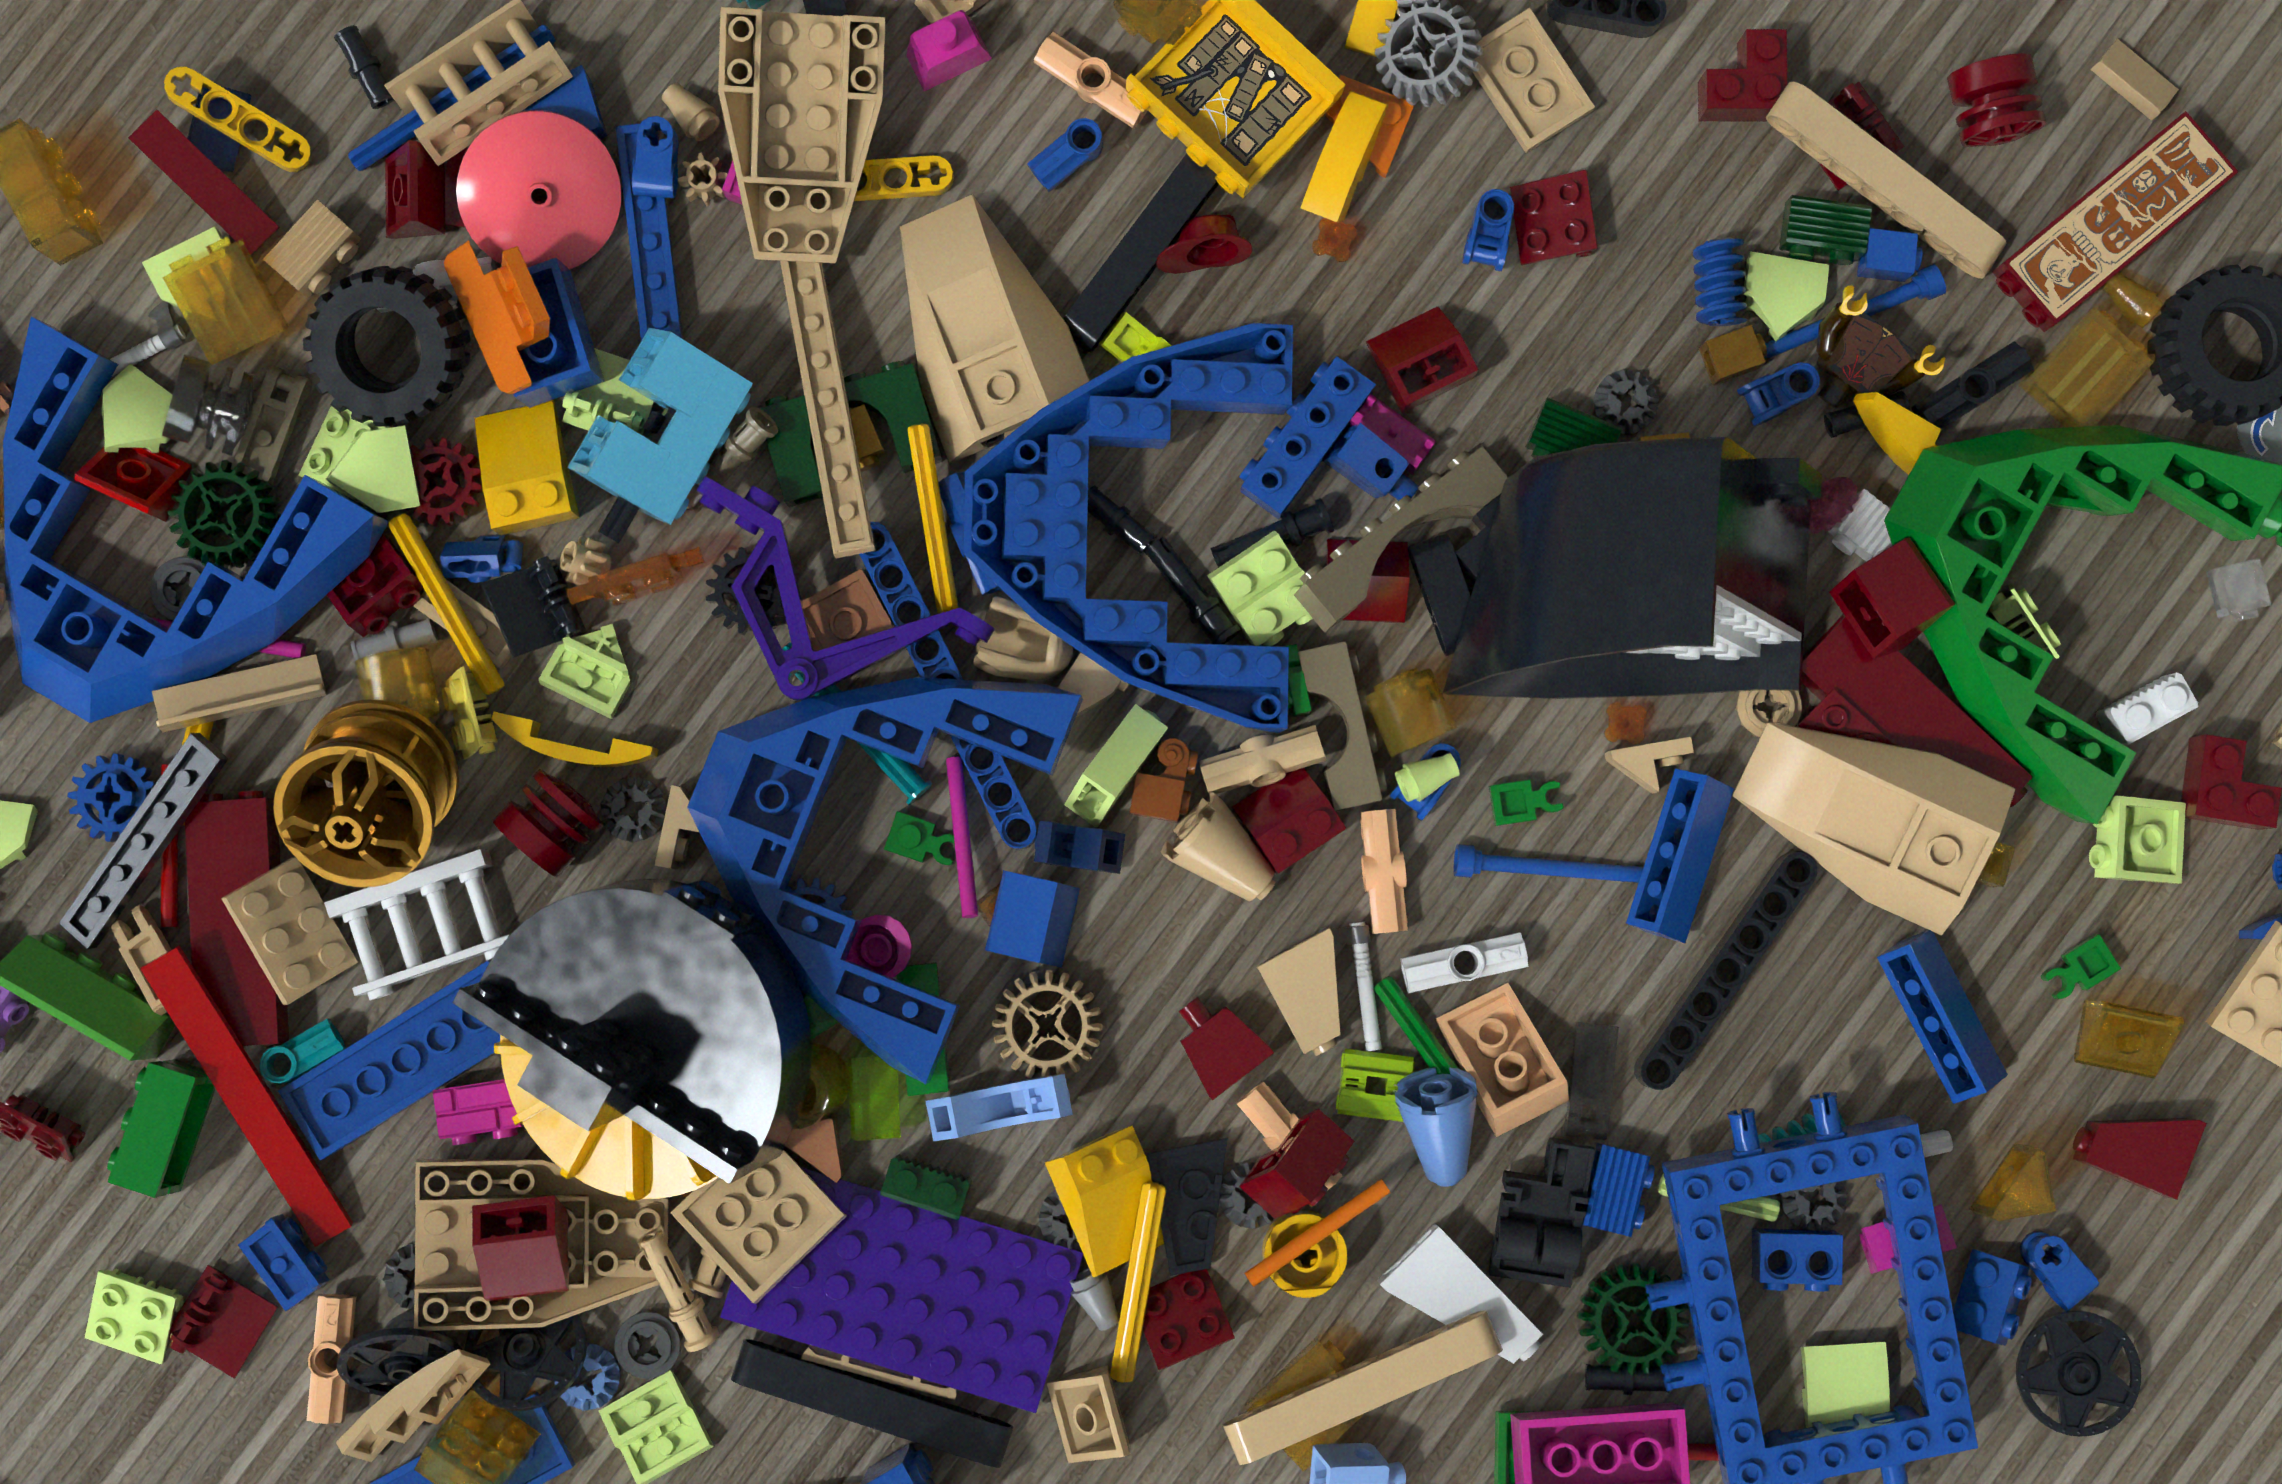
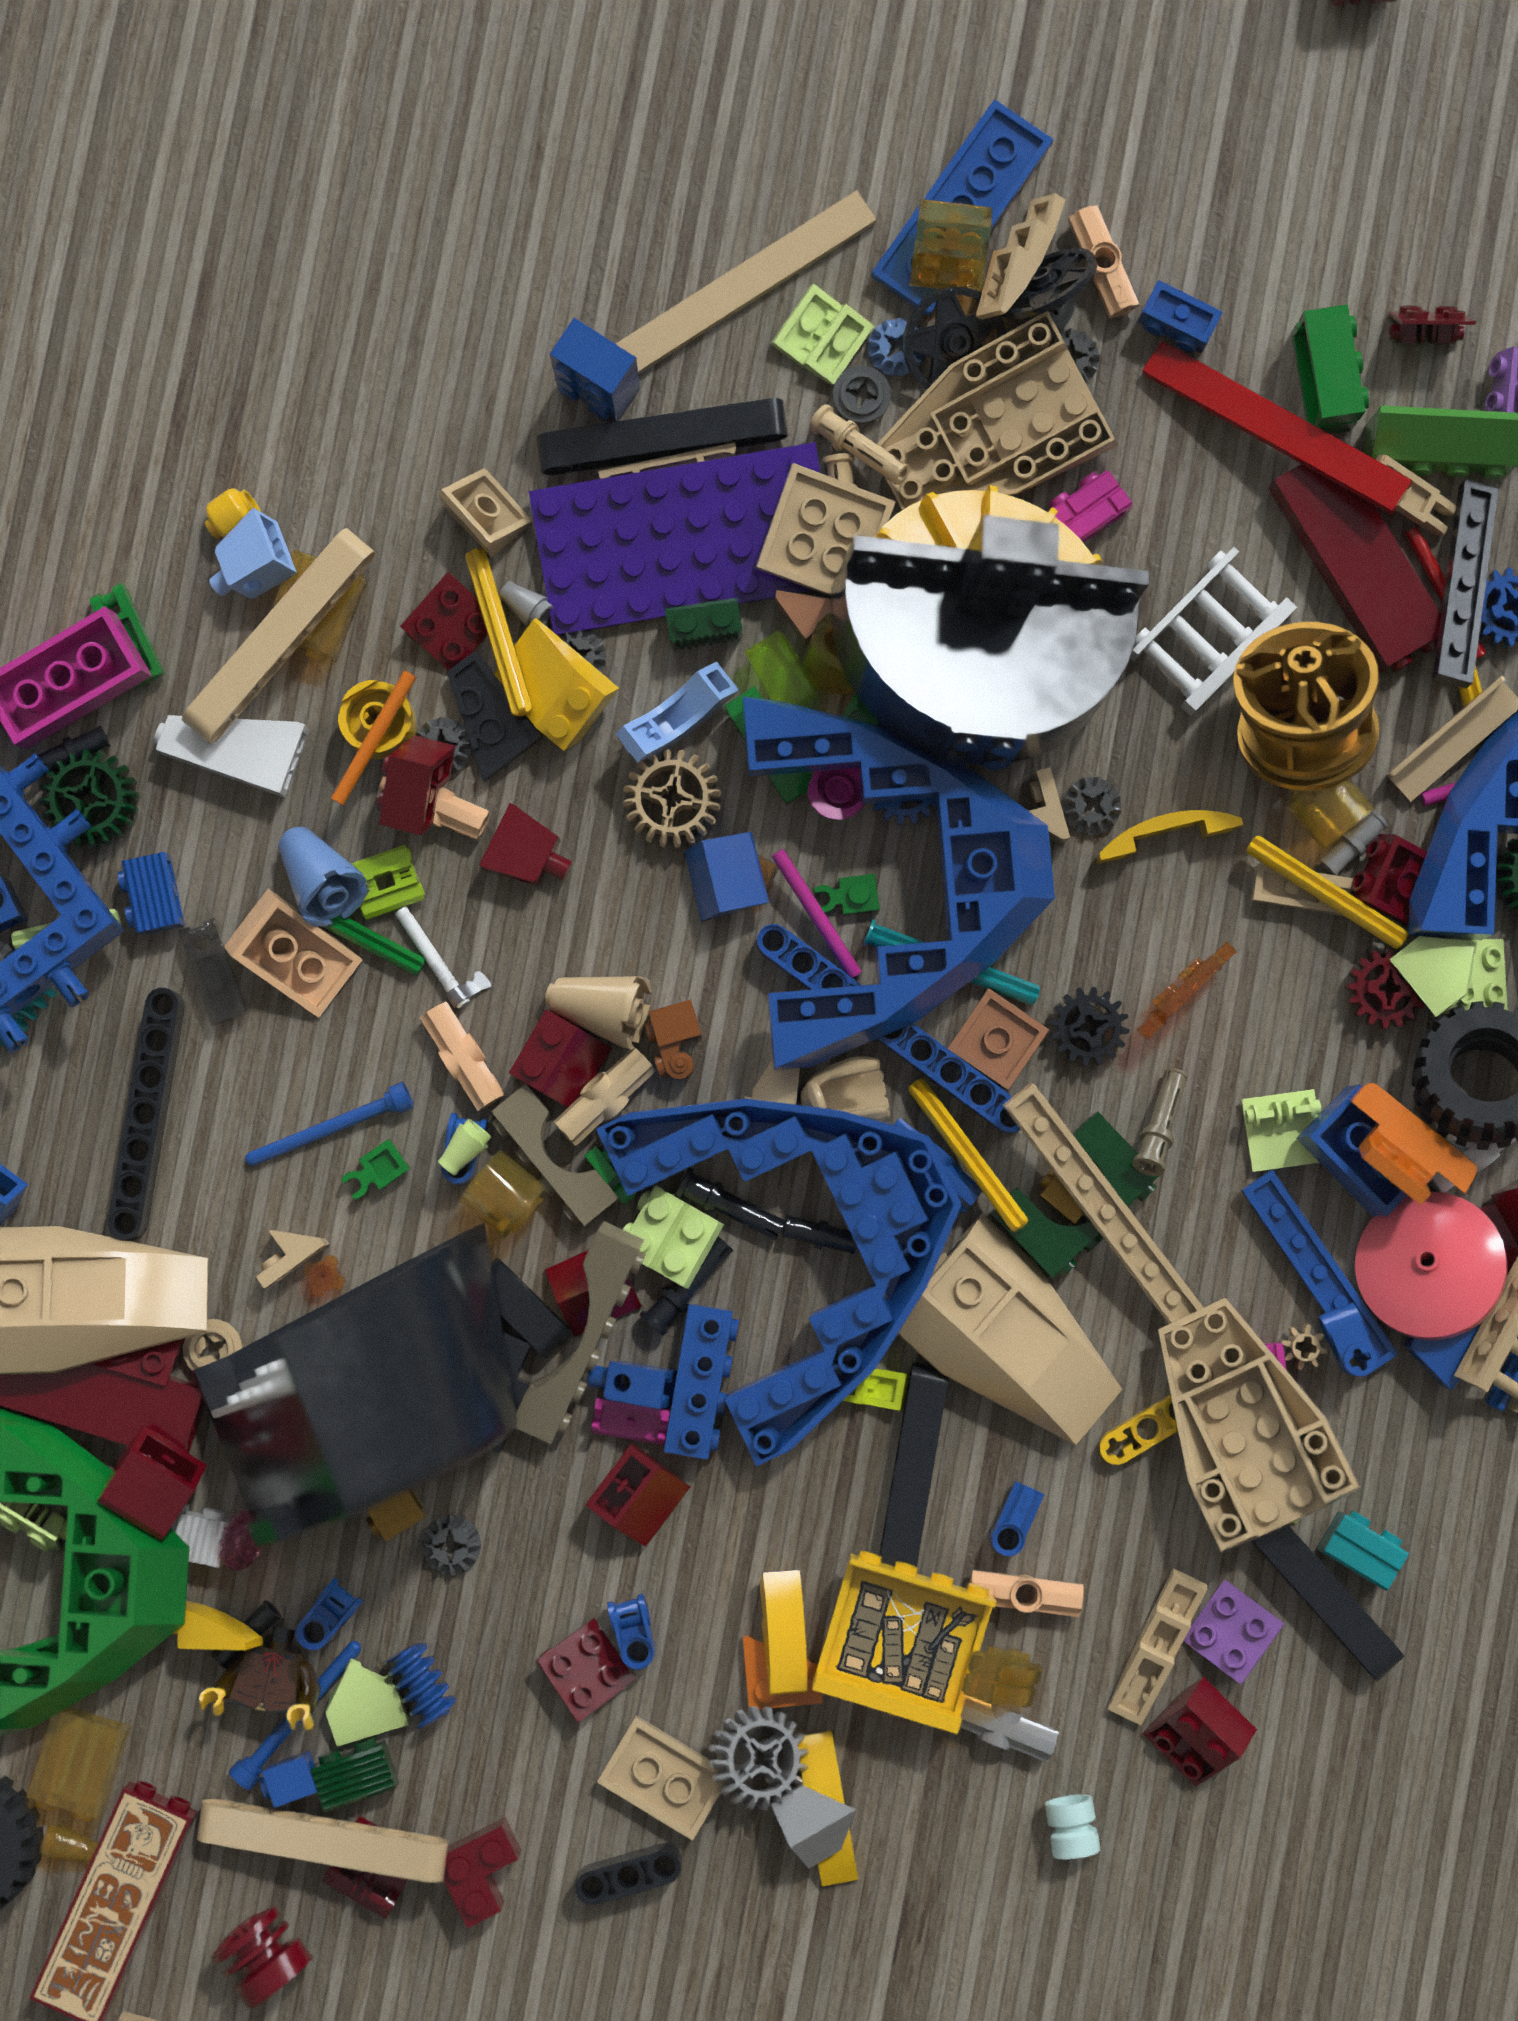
camera: 155 degrees right, 0 degrees up
(132, 1314) = (1276, 218): yellowish green hinge -> none
(221, 1321) = (1205, 247): dark red hinge -> none
(289, 930) = (1312, 571): tan plate -> none
(304, 1051) = (1251, 485): teal piece -> none
(389, 1069) = (1177, 505): blue plate -> none
(459, 697) = (1255, 798): light yellow hinge -> none
(481, 558) = (1319, 944): blue piece -> none
(521, 1247) = (997, 415): dark red slope -> none
(524, 469) = (1323, 1035): yellow slope -> none
(533, 607) = (1256, 925): black hinge -> none
(548, 822) = (1153, 752): dark red wheel -> none
(584, 560) = (1234, 983): tan gear -> none
(589, 671) = (1184, 898): yellowish green slope -> none
(662, 469) = (1208, 1088): medium azure piece -> none
(692, 114) = (1341, 1397): tan cone -> none
(830, 664) = (998, 989): dark purple piece -> none
(946, 49) = (1159, 1557): dark pink torso -> none
(1079, 847) = (717, 951): dark blue brick -> none
(1116, 765) = (720, 1034): yellowish green slope -> none
(1205, 244) = (863, 1502): dark red piece -> none
(1306, 991) = (477, 928): tan slope -> none
(1344, 233) = (750, 1553): clear orange plate -> none
(1489, 955) = (342, 1030): white piece -> none
(1540, 1222) = (199, 843): black plate -> none
(1566, 428) = (480, 1490): dark green brick -> none
(1680, 855) = (227, 1187): blue brick -> none
(1733, 354) = (380, 1628): pearl gold brick -> none
(1990, 375) = (155, 1718): black piece -> none

